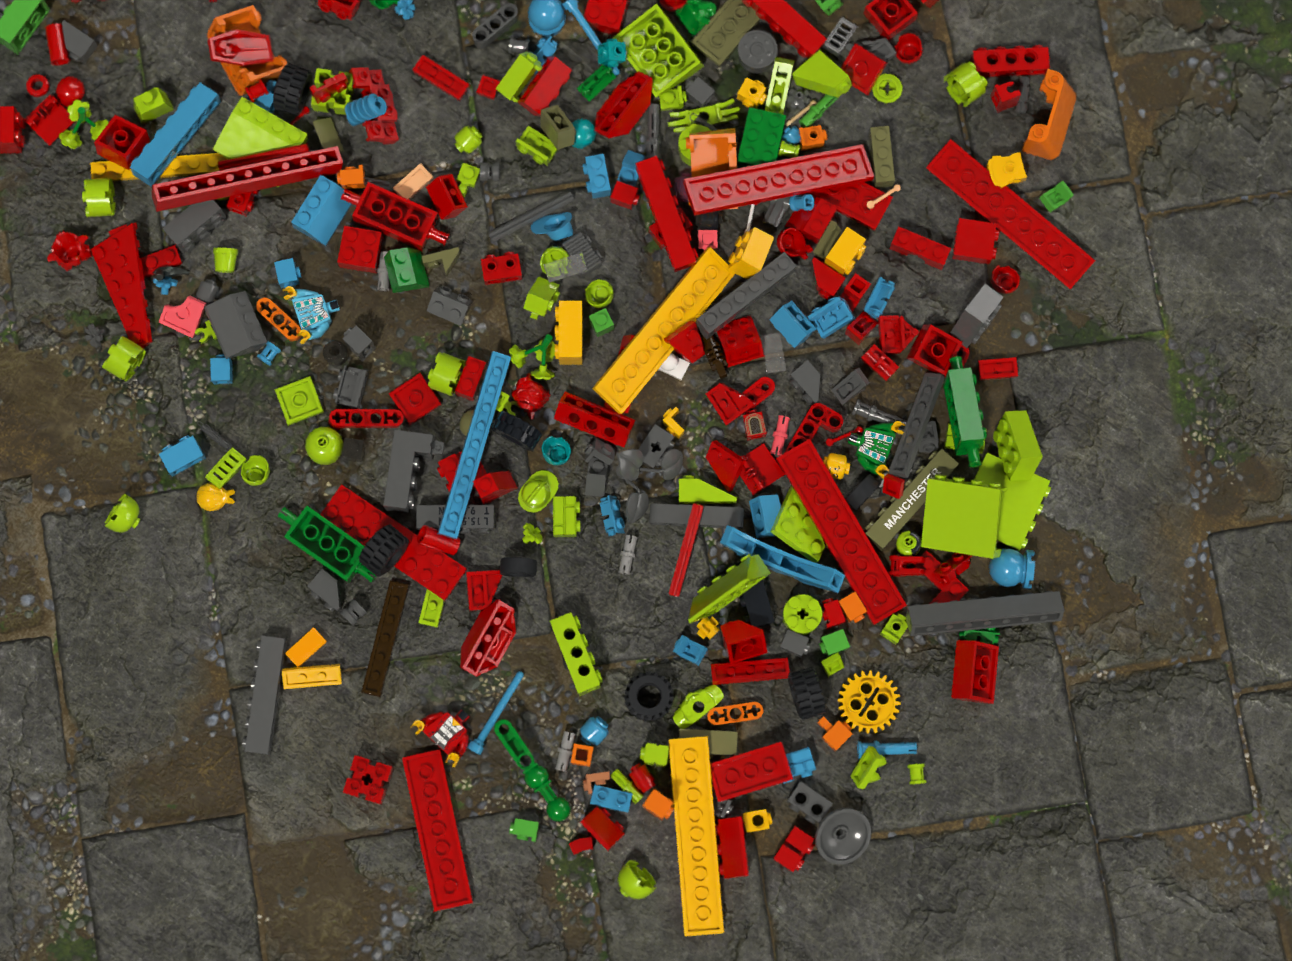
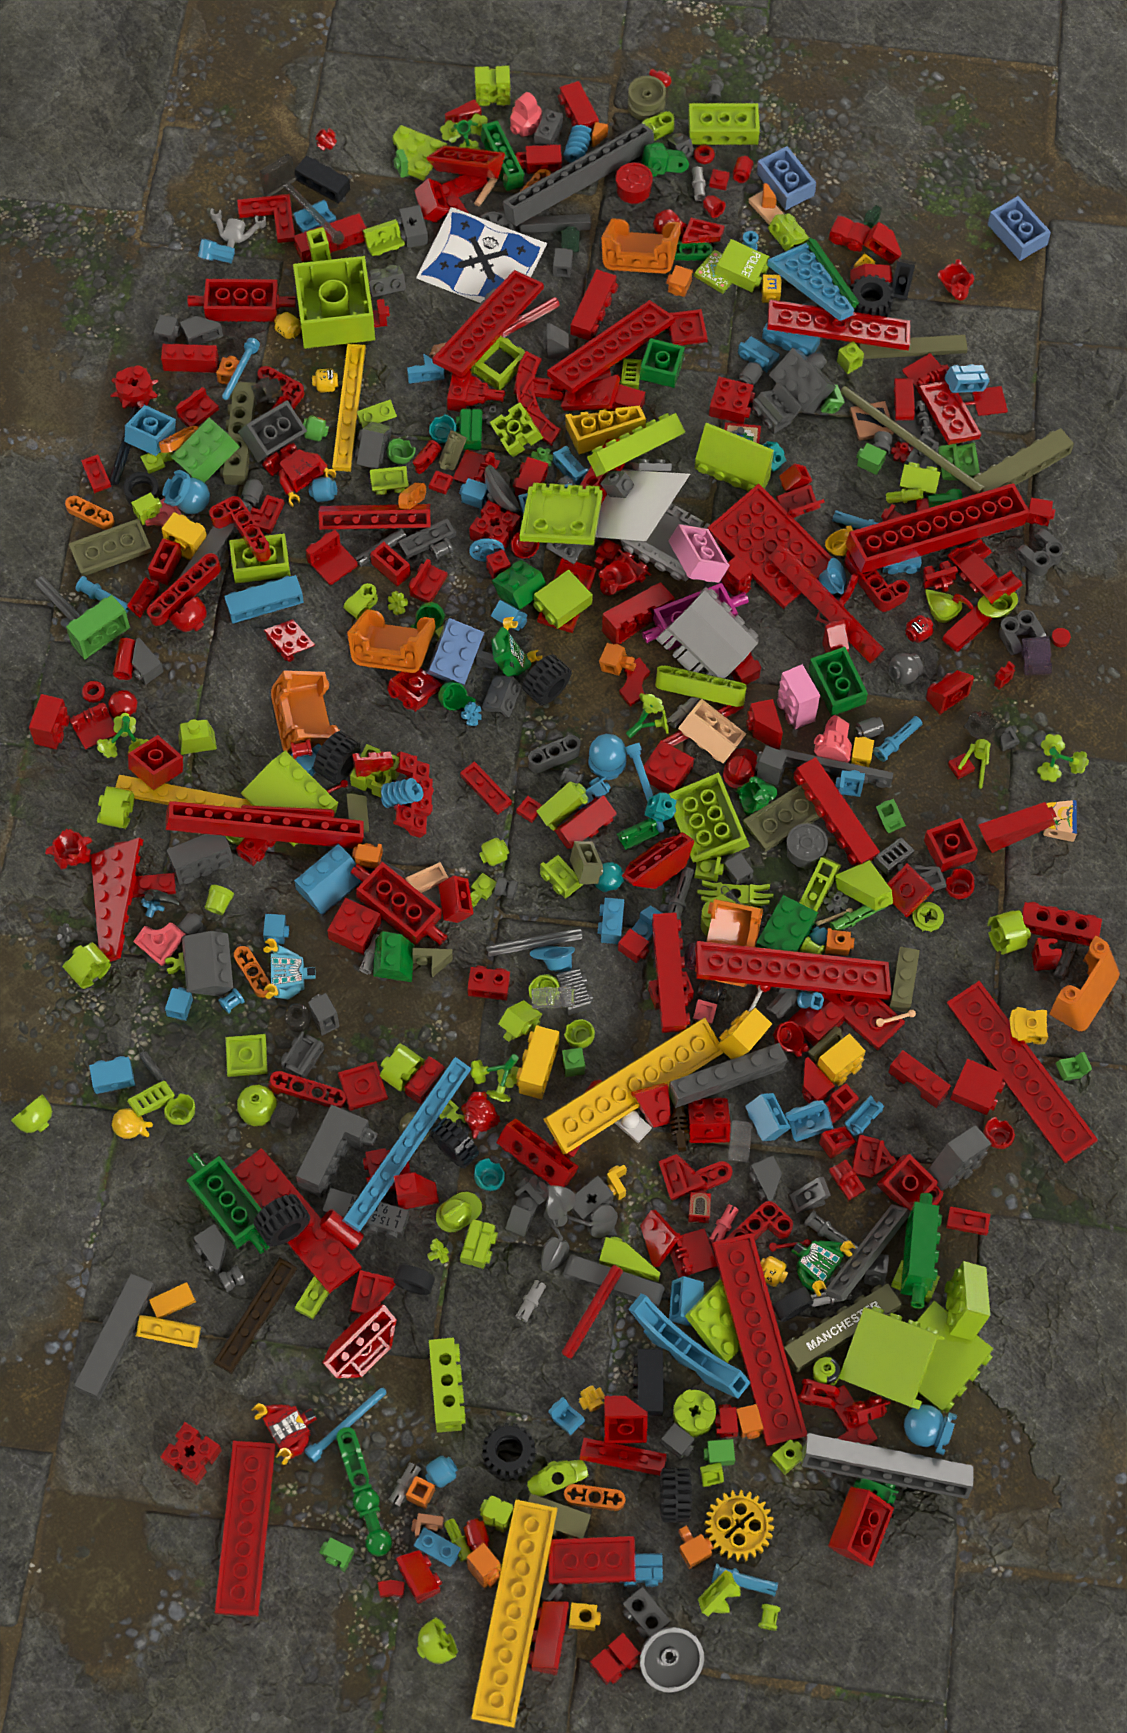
camera: 15 degrees right, 15 degrees down
(175, 134) = (210, 768): dark azure brick -> none
(240, 48) = (299, 706): red piece -> none
(449, 305) = (425, 1004): dark grey bracket -> none
(614, 524) = (526, 1247): dark azure hinge -> none
(728, 587) = (624, 1360): lime slope -> none
(752, 93) = (790, 883): yellow brick -> none
(893, 486) = (826, 1306): red plate -> none

